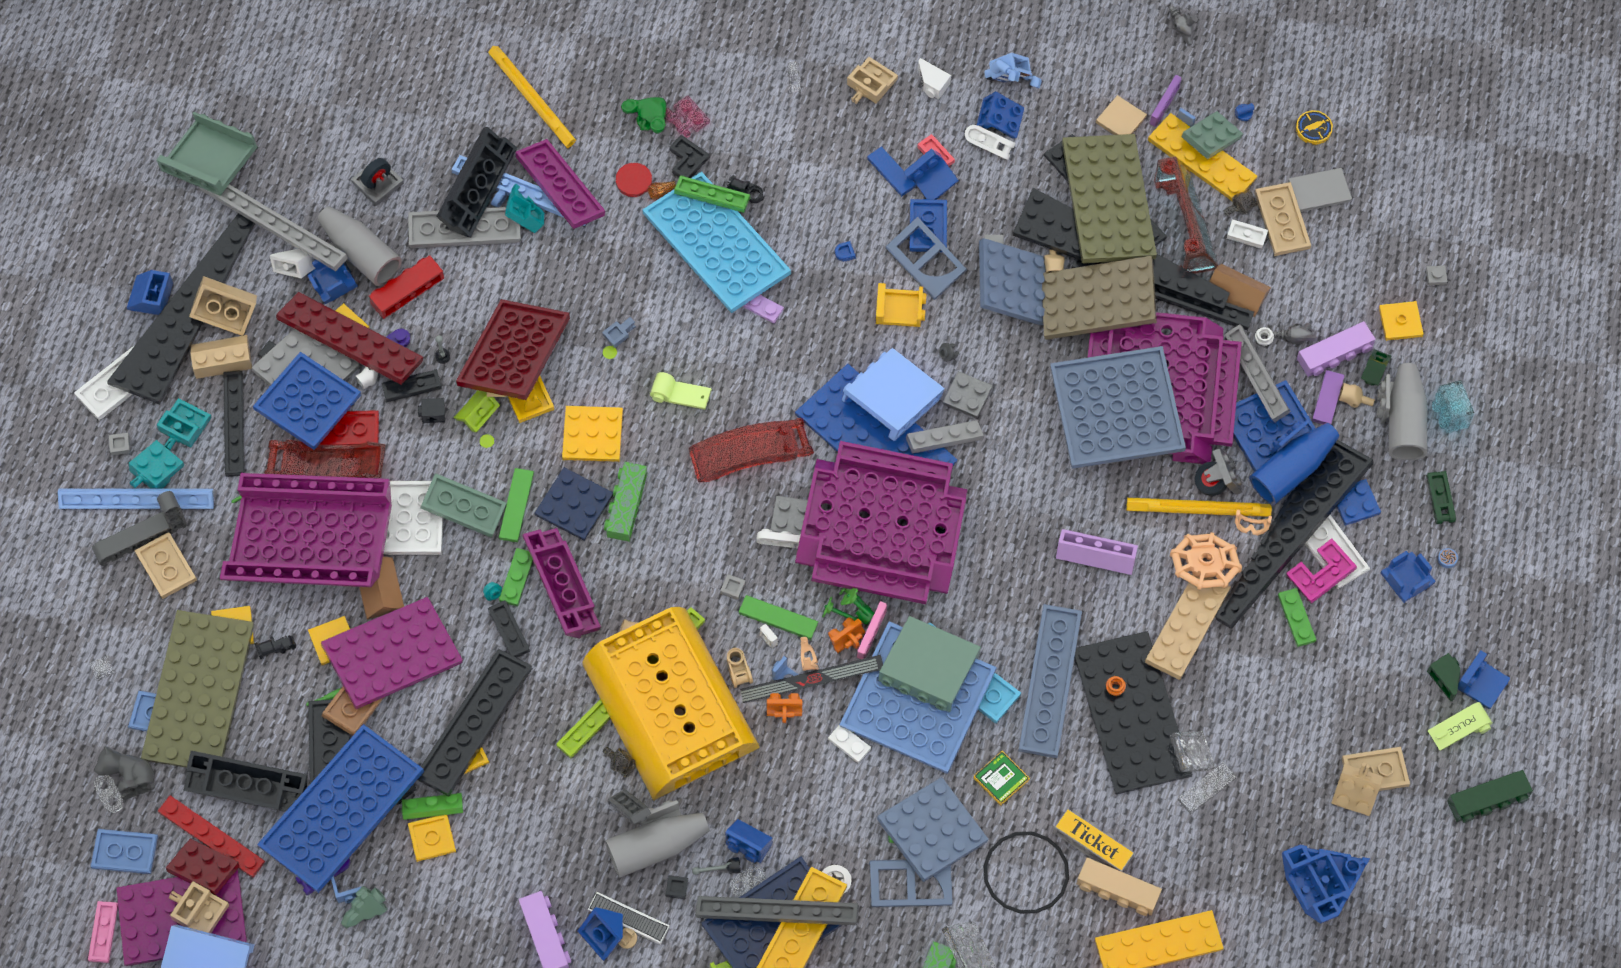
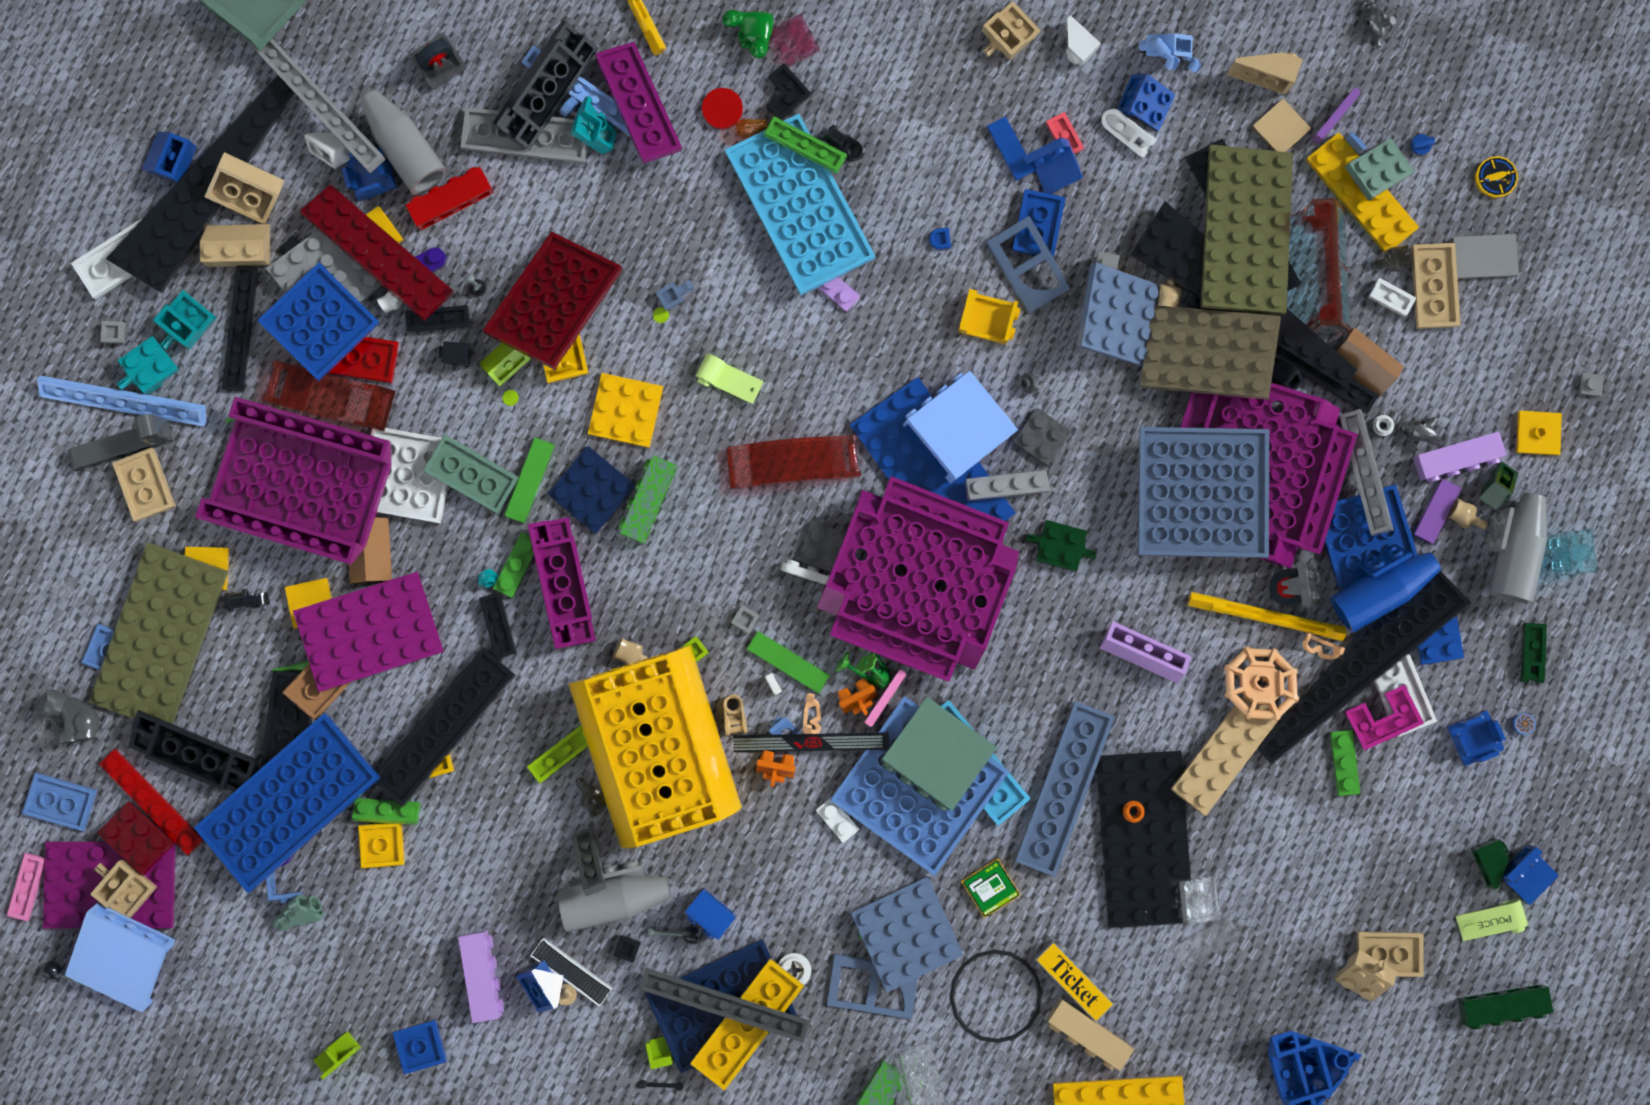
camera: 10 degrees right, 20 degrees up
(1003, 480) = (1061, 546): none -> dark green plate
(1097, 73) = (1269, 71): none -> tan slope
(1170, 305) = (1286, 375): none -> black brick

